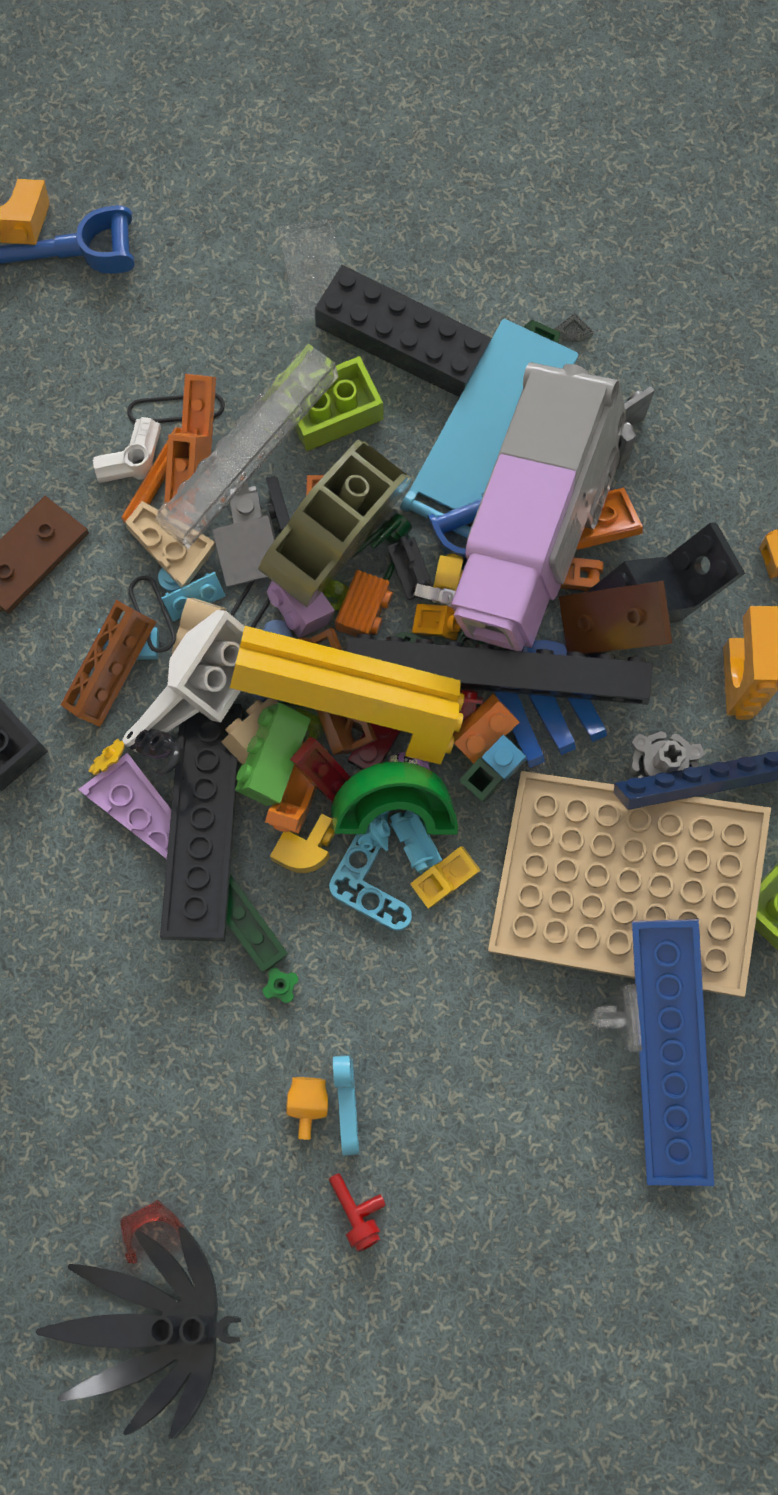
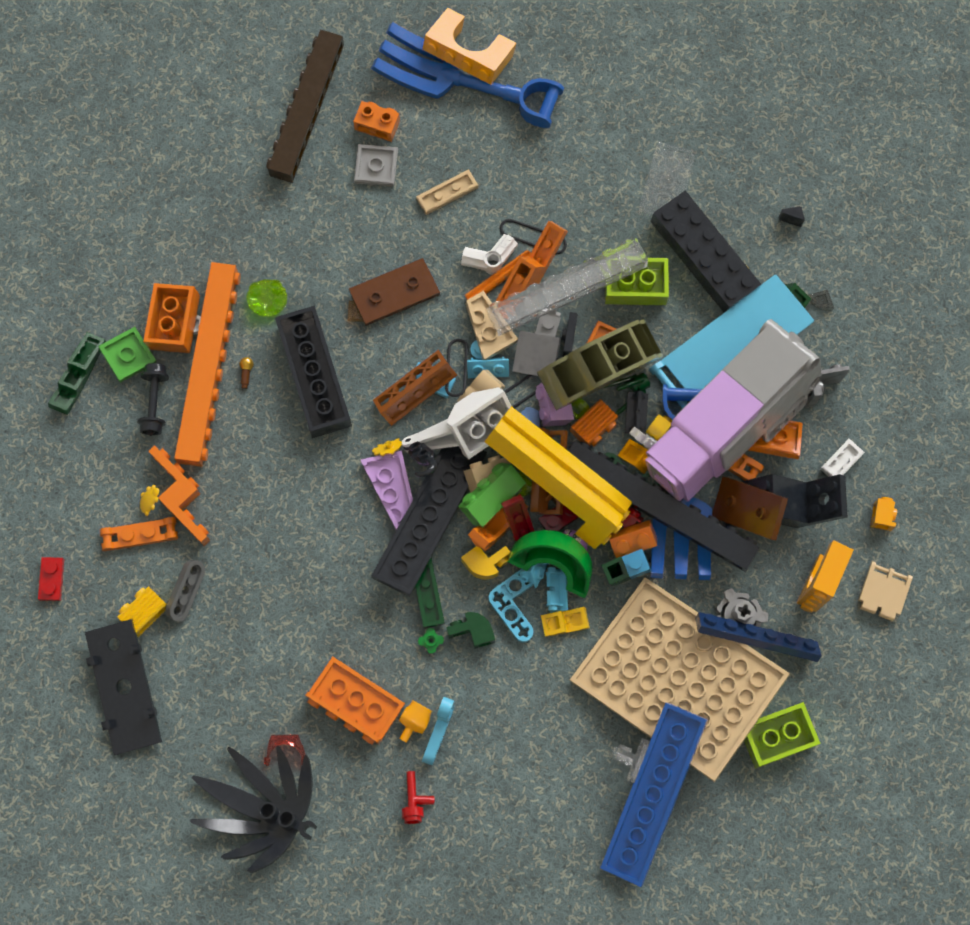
camera: 20 degrees right, 0 degrees up
(40, 401) = (447, 192): none -> tan tile
(215, 1117) = (354, 701): none -> orange bracket
(332, 937) = (477, 626): none -> dark green brick
(489, 243) = (792, 216): none -> black slope
(695, 509) = (842, 459): none -> white plate

